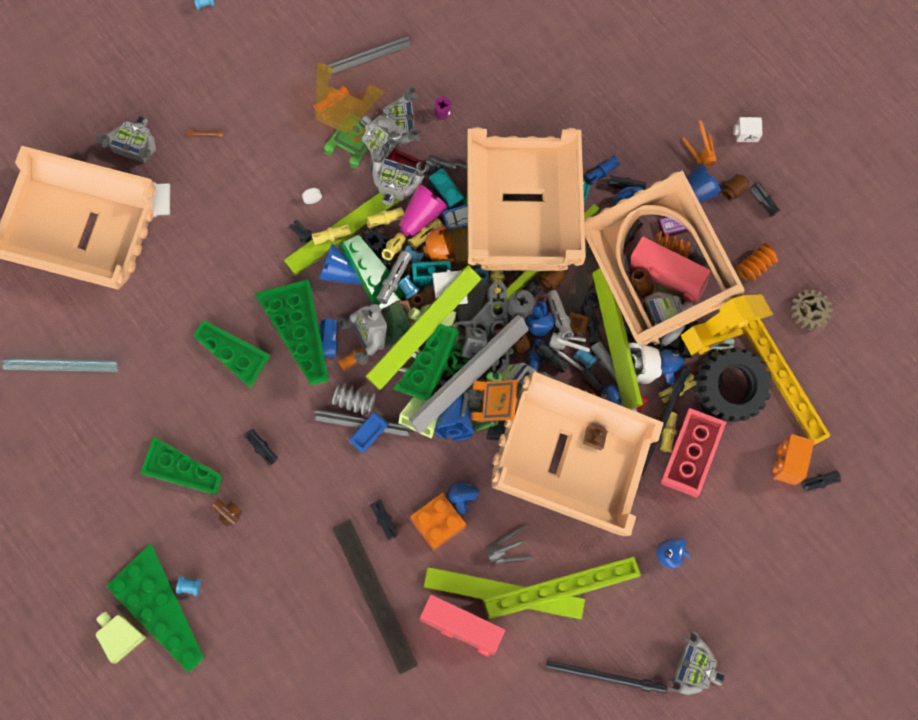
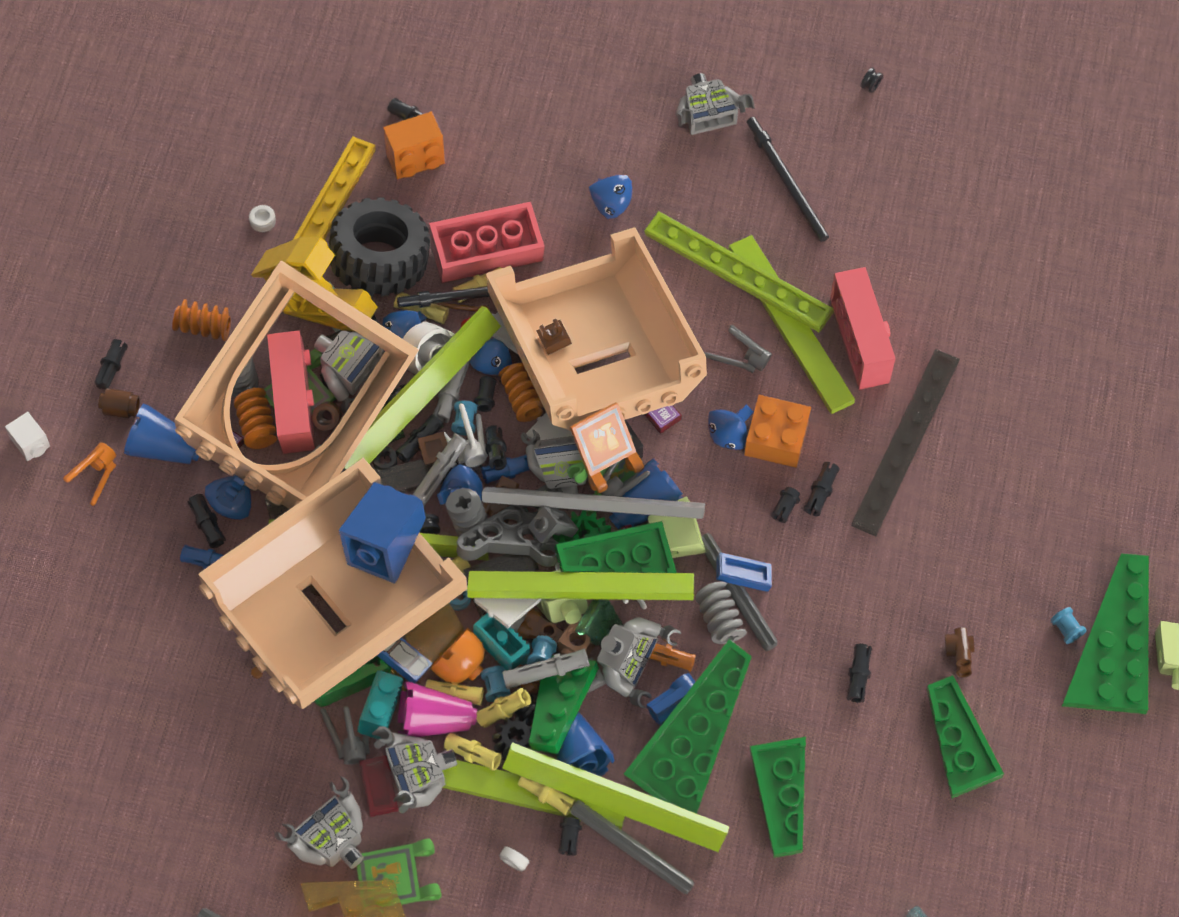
camera: 125 degrees left, 10 degrees down
(268, 255) = (632, 847): none -> dark grey axle
(297, 261) = (615, 797): none -> lime tile
(380, 134) = (375, 824): light grey torso -> none
(391, 491) = (786, 503): none -> black pin
(442, 102) = (275, 790): magenta bush -> none
(535, 240) = (382, 531): none -> blue slope
(807, 345) = (262, 218): none -> white tile
(819, 311) = (204, 236): dark tan gear -> none

